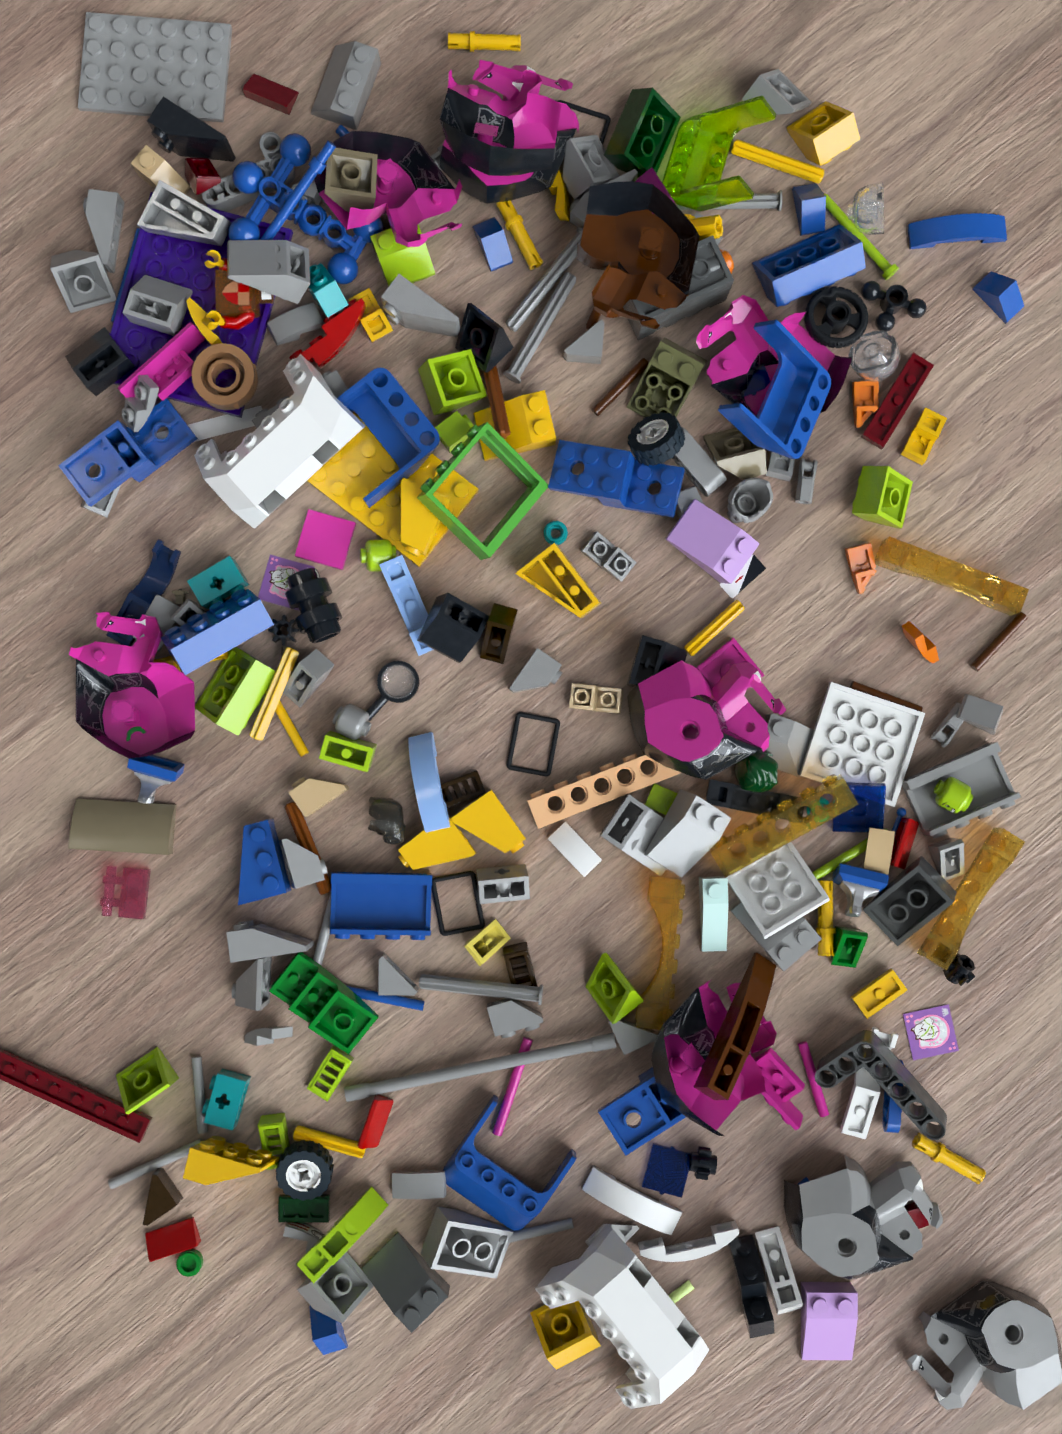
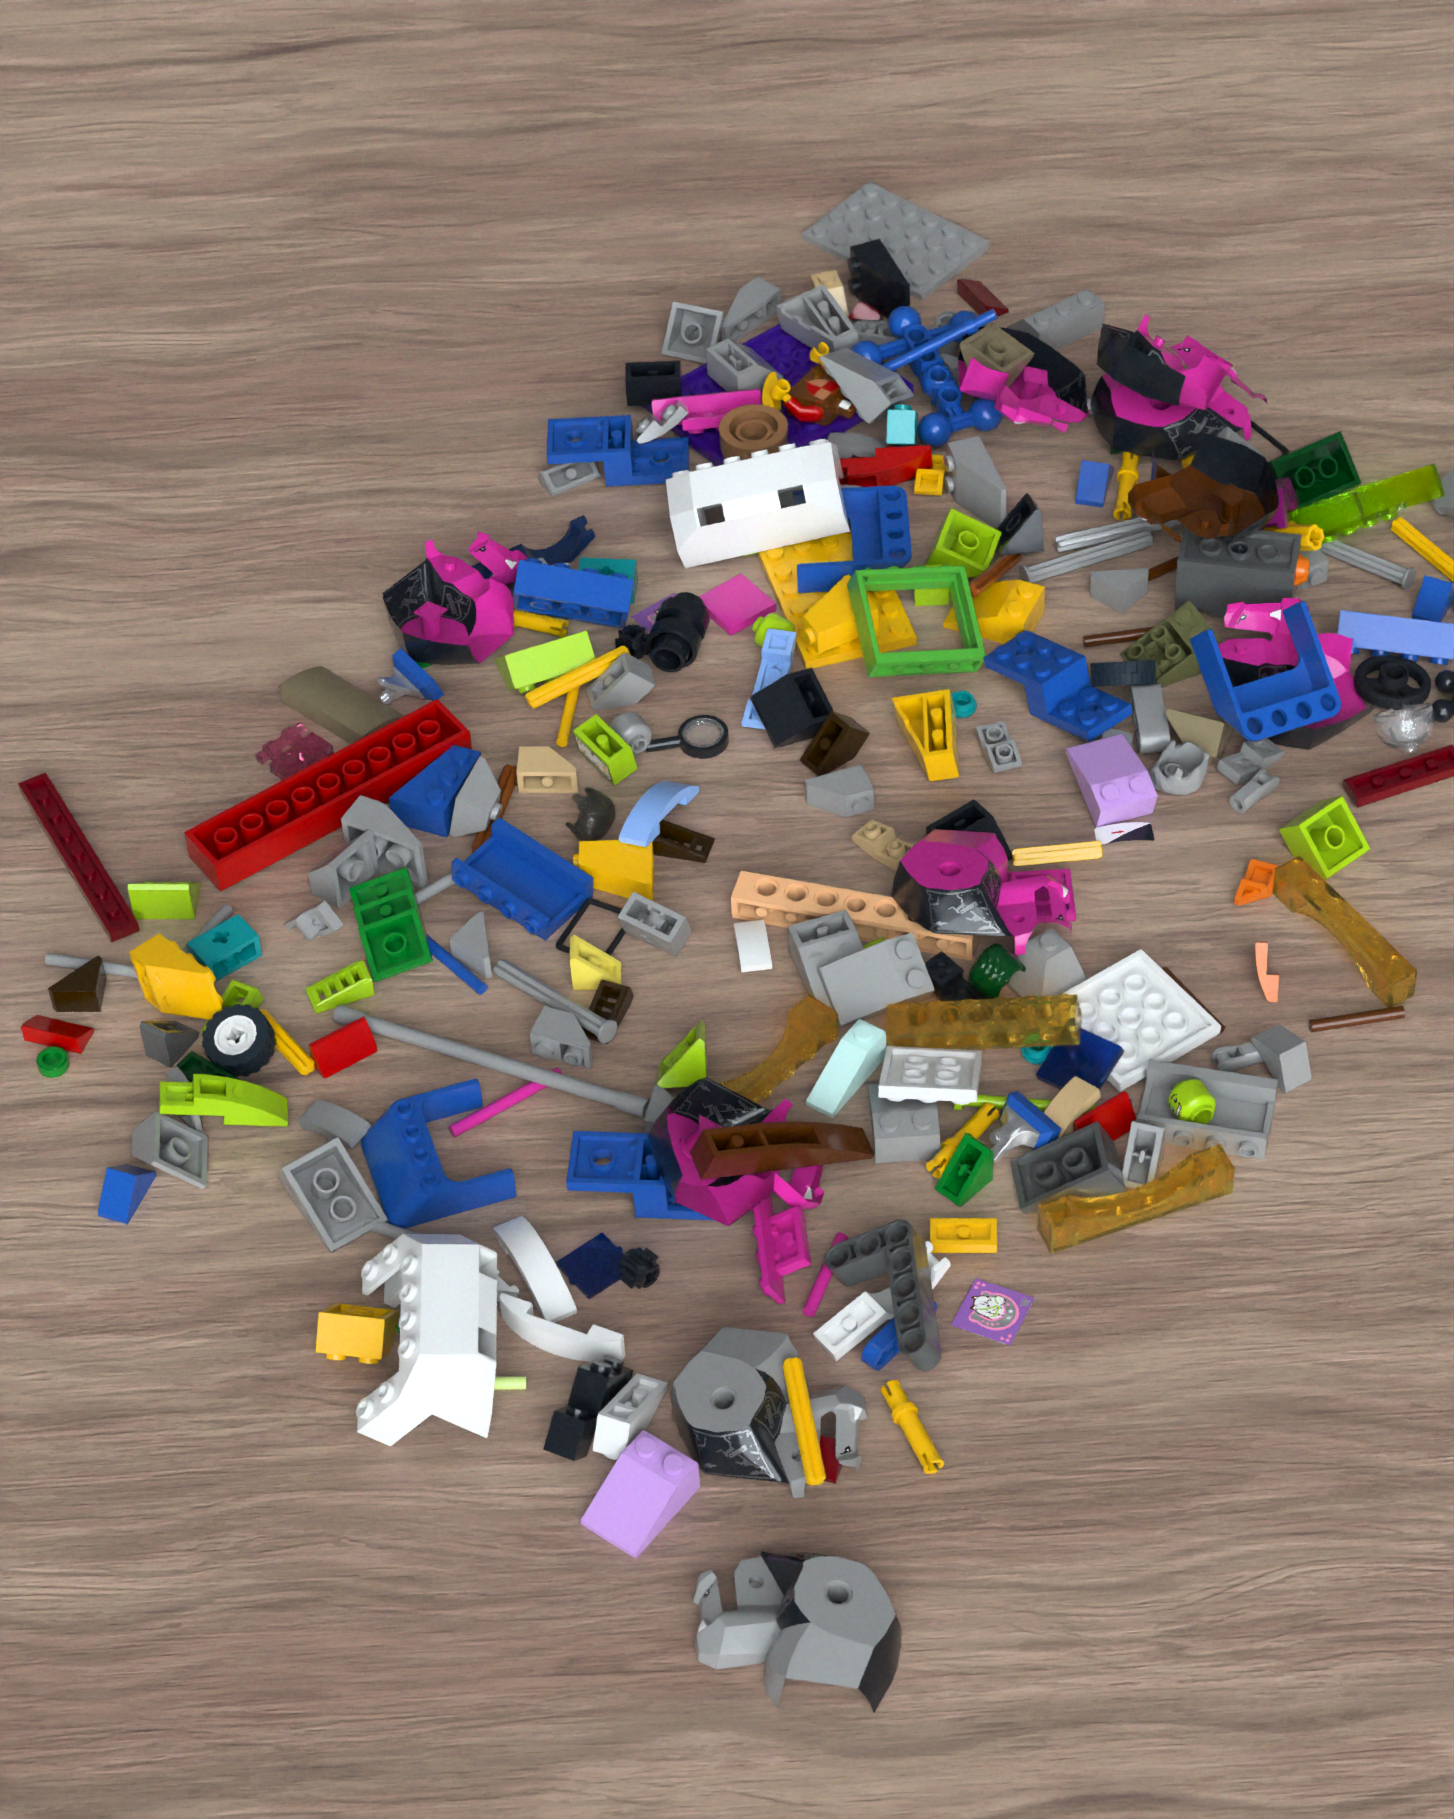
camera: 45 degrees right, 40 degrees down
(188, 924) = (318, 797): none -> red brick
(253, 1197) = (167, 1040): none -> dark grey slope
(396, 259) = (1006, 444): lime slope -> none
(406, 1282) = (241, 1199): dark grey slope -> none
(473, 41) = (1237, 360): yellow pin -> none
(491, 823) = (688, 877): yellow slope -> none
(513, 741) = (750, 854): black piece -> none
(865, 400) = (1372, 757): orange slope -> none
(899, 1220) = (804, 1421): none -> yellow axle
(923, 436) = (1414, 818): yellow slope -> none
(960, 970) = (1070, 1258): black gear -> none

